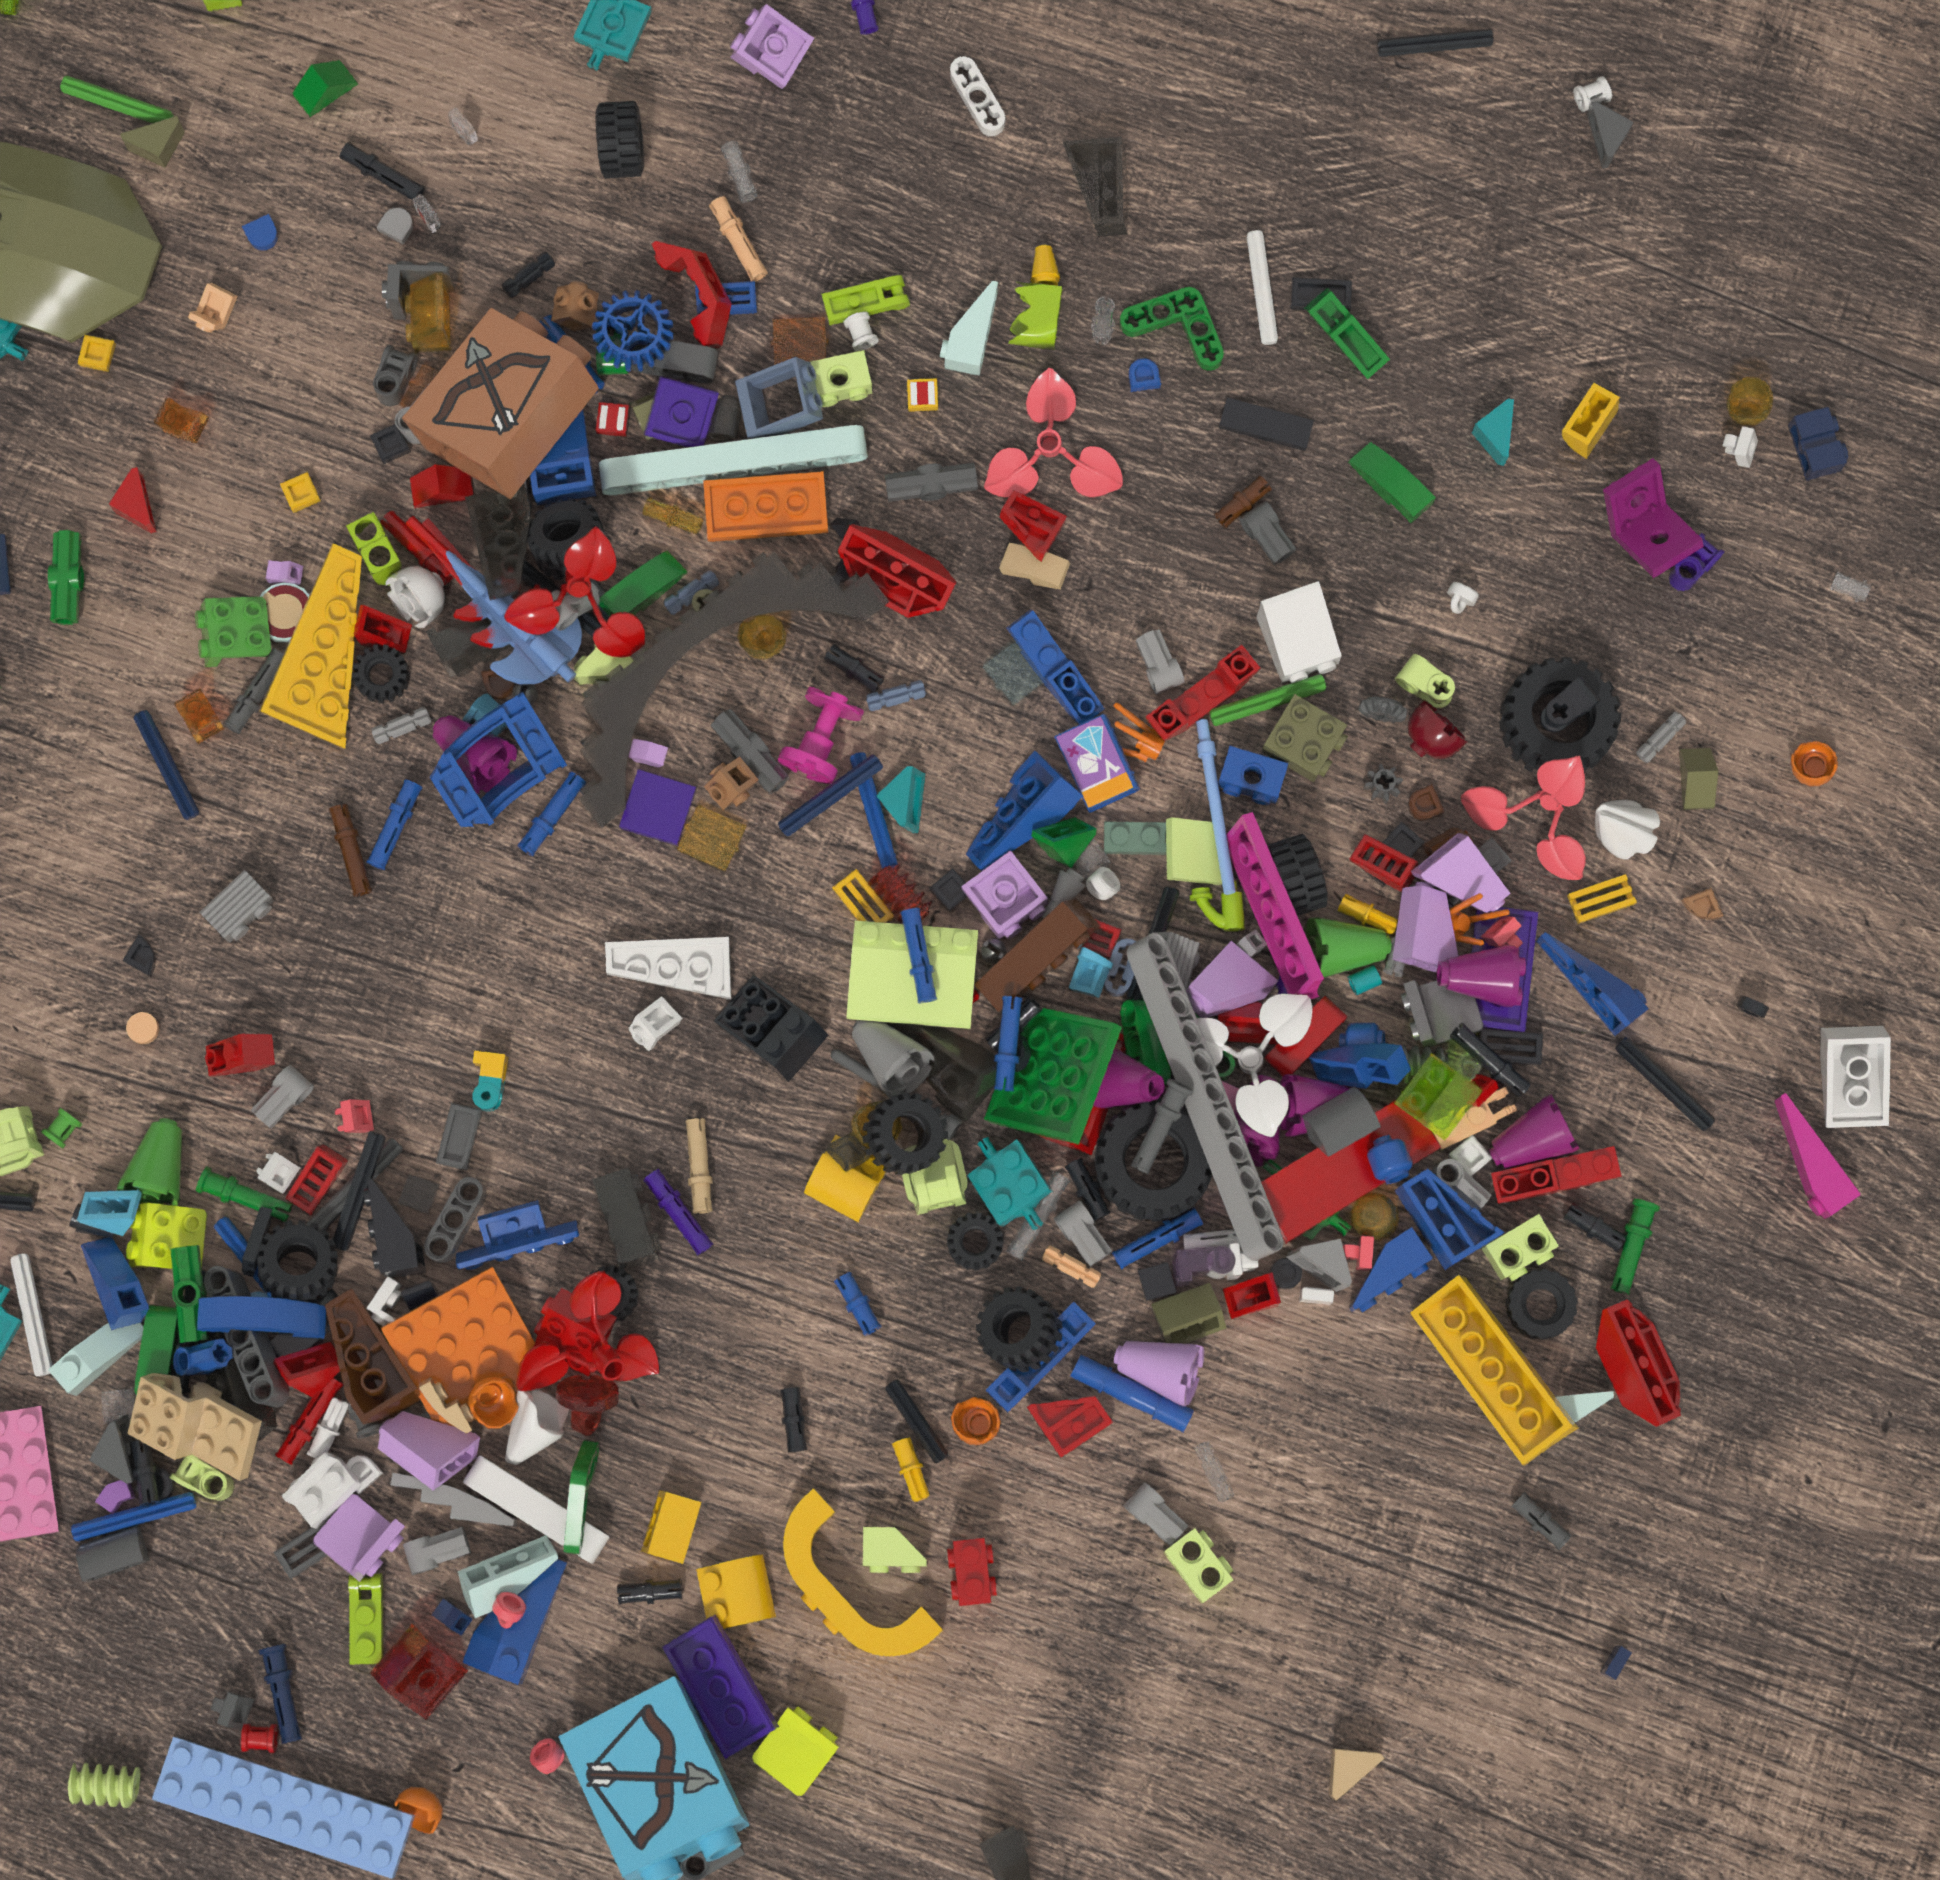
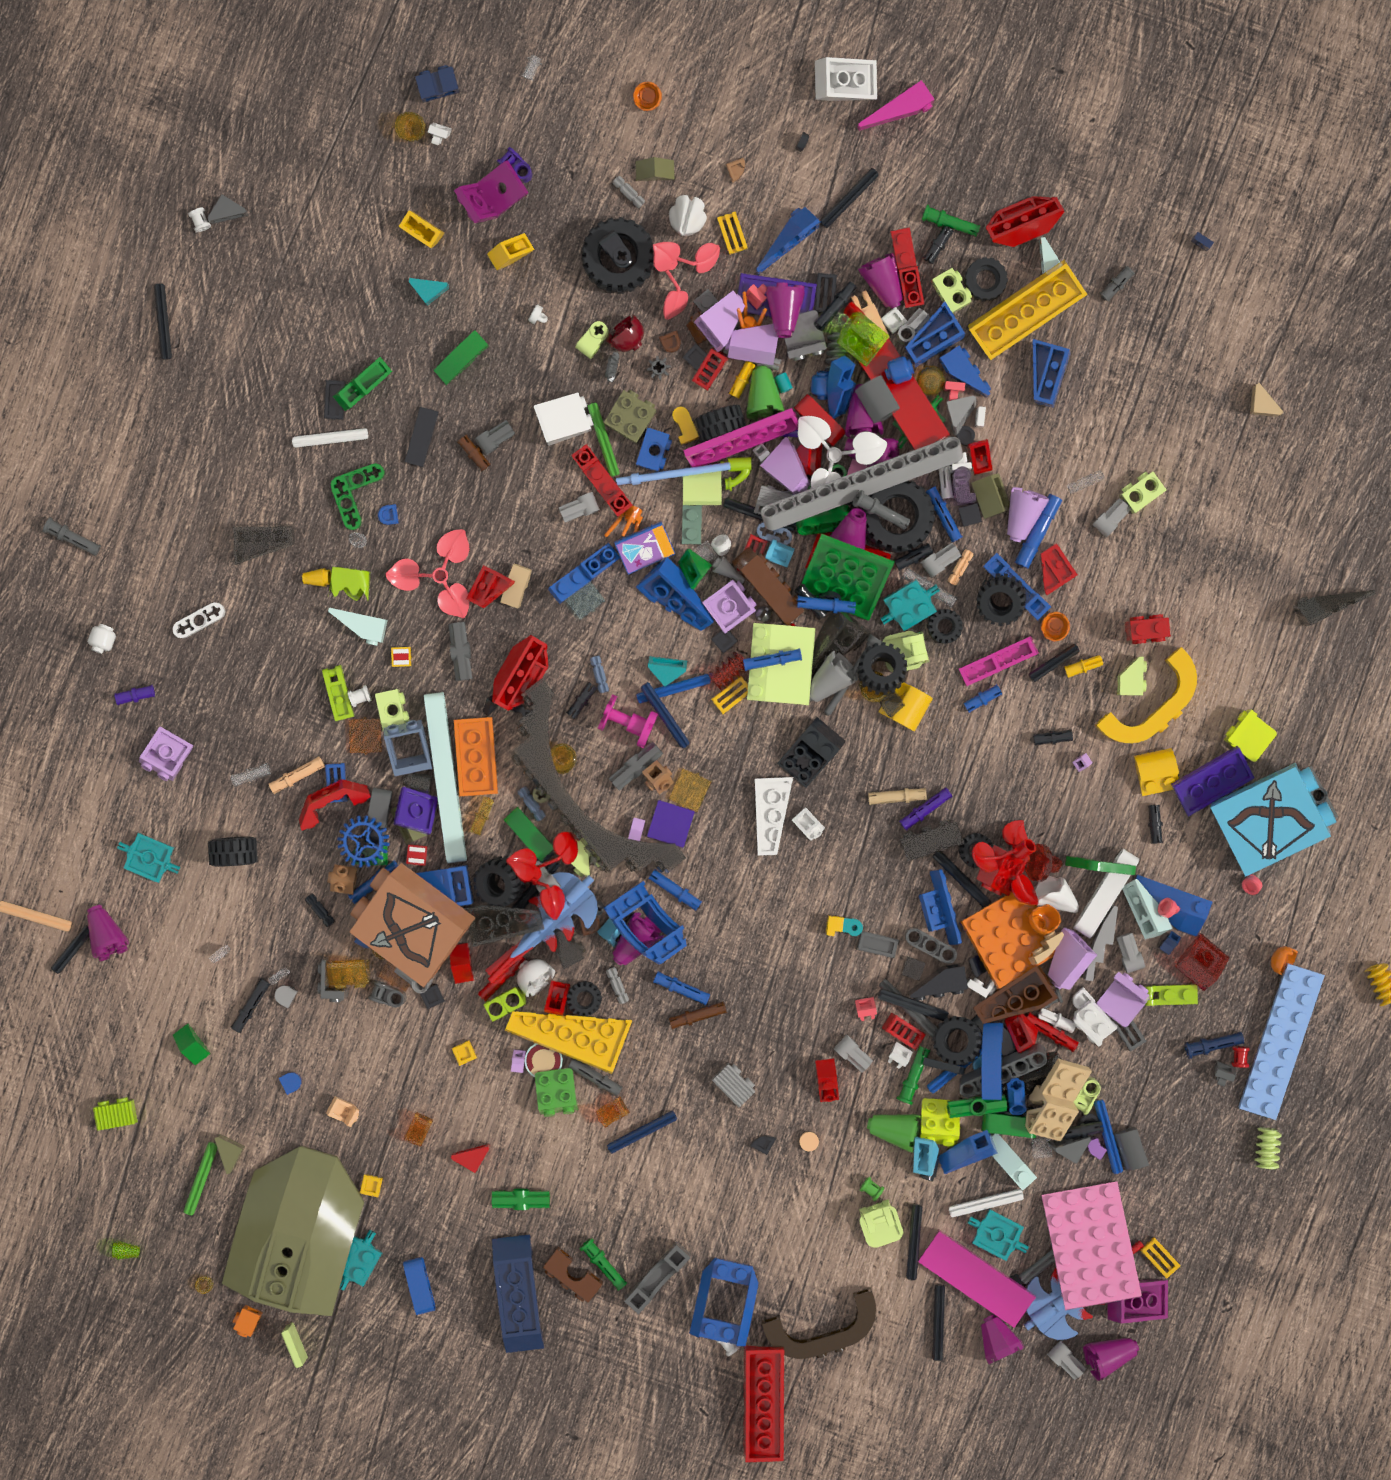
camera: 90 degrees left, 10 degrees up
(563, 1271) = (961, 878): none -> black axle
(671, 1526) = (1117, 811): yellow brick -> none
(752, 1467) = (1085, 760): none -> lavender piece
(919, 1331) = (998, 661): none -> dark pink slope
(1304, 821) = (683, 419): none -> yellow leg
(1393, 1406) = (1048, 371): none -> blue wedge
(1560, 554) = (510, 251): none -> yellow slope

